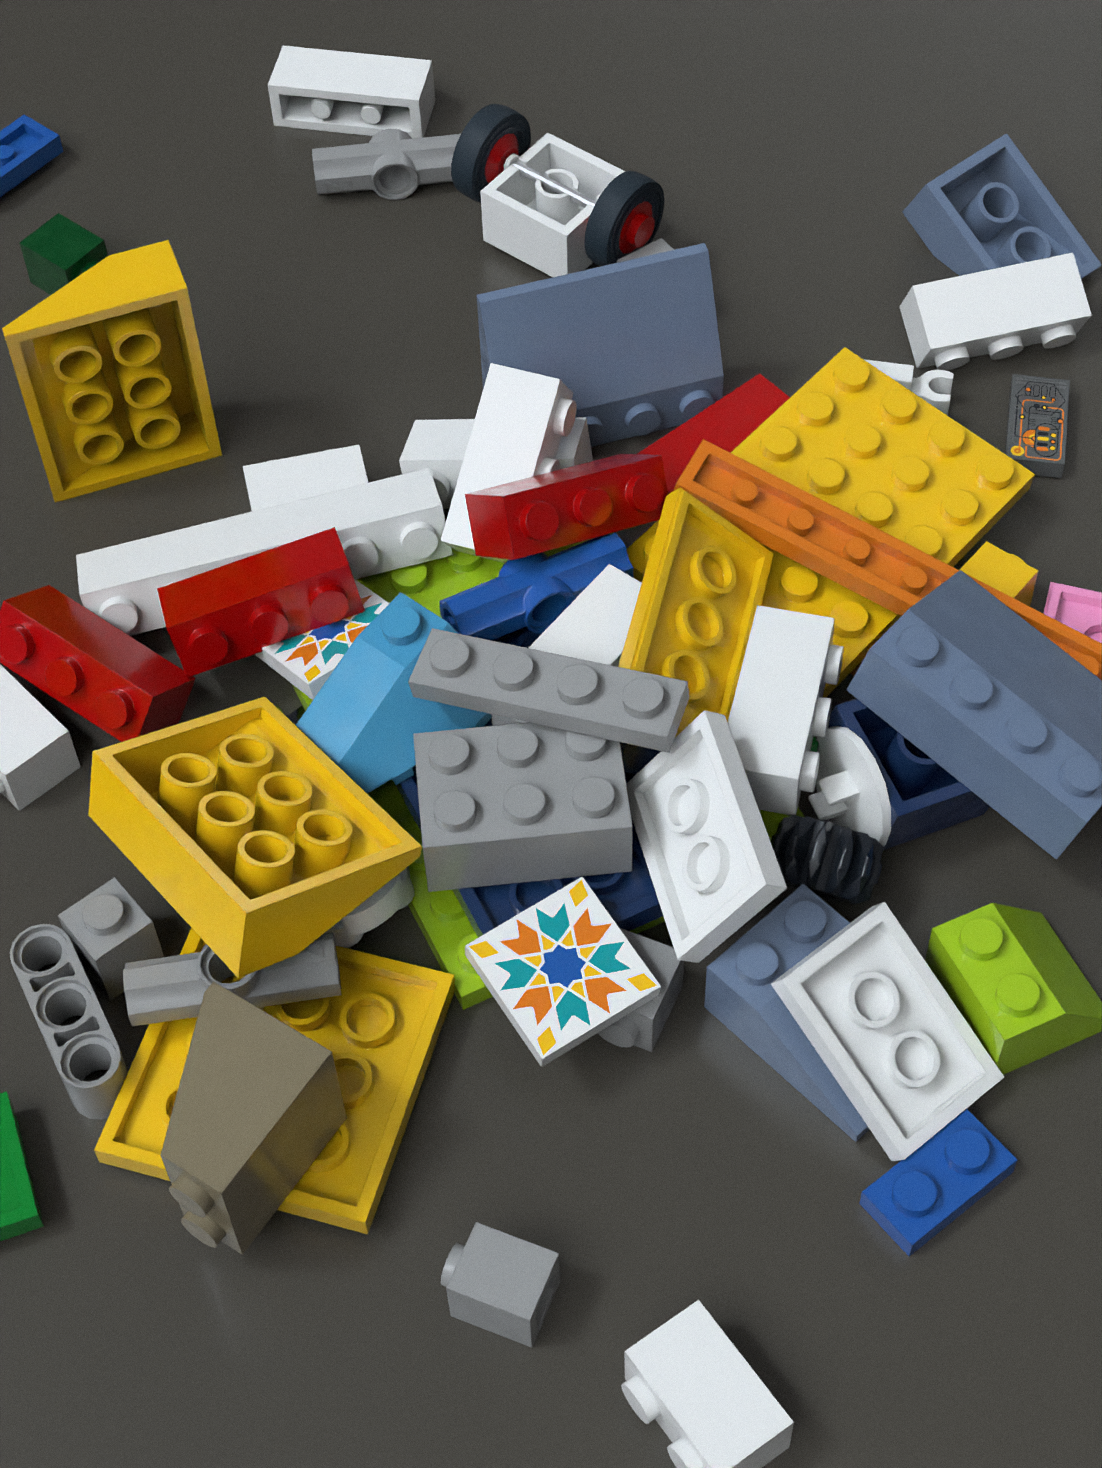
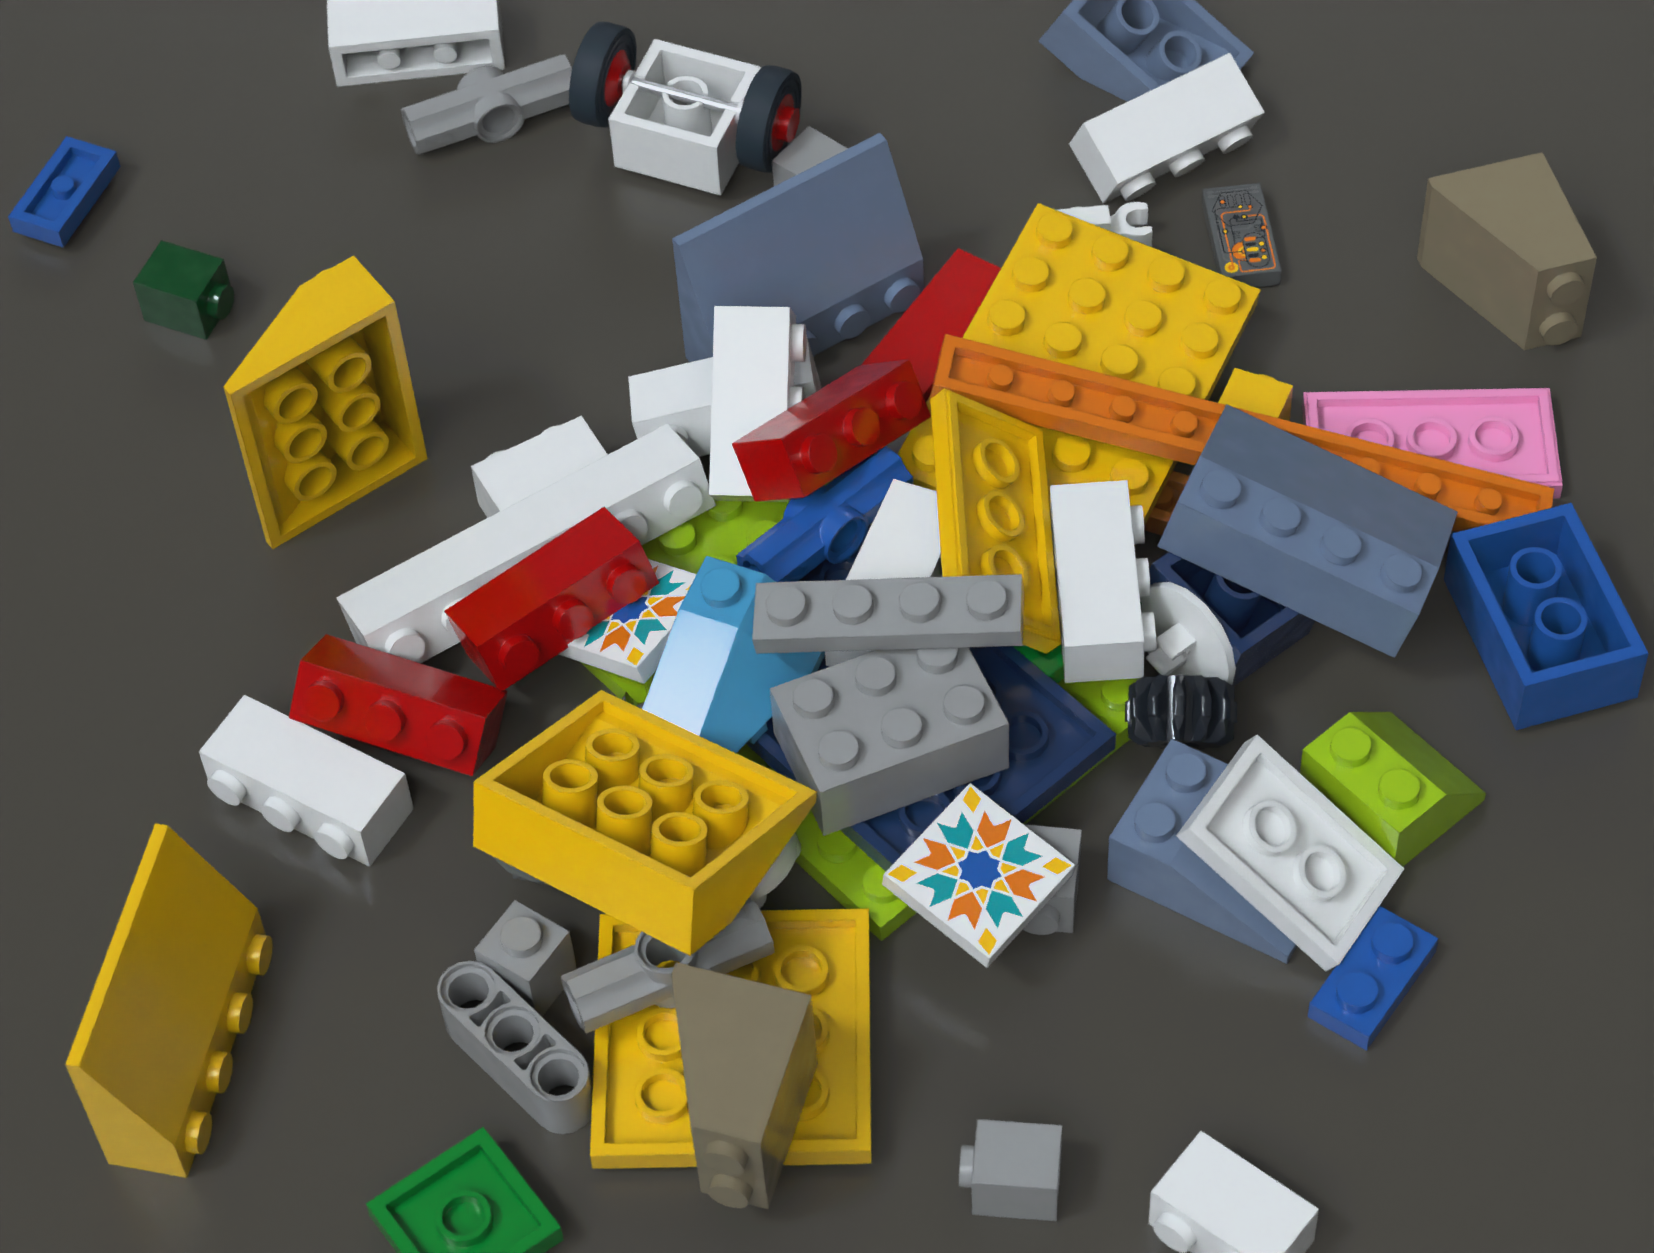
camera: 15 degrees left, 0 degrees up
(703, 838) = (1075, 717): white plate -> none

